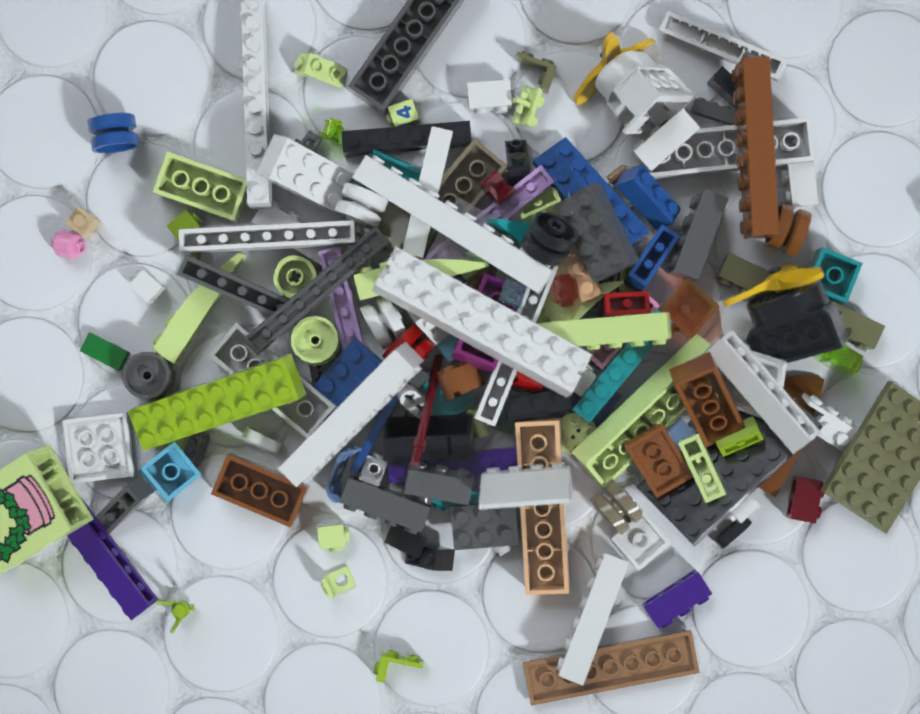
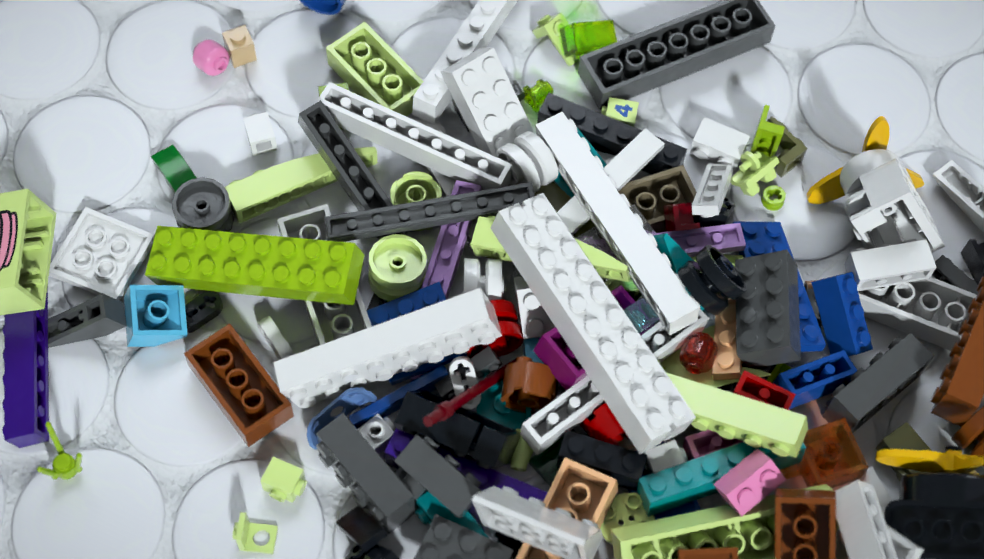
camera: 30 degrees right, 25 degrees down
(344, 63) = (586, 37): none -> clear neon green brick
(507, 147) = (712, 190): none -> white plate
(523, 75) = (767, 135): none -> lime panel
(545, 112) = (774, 204): none -> lime bush
(648, 372) = (749, 482): none -> bright pink brick

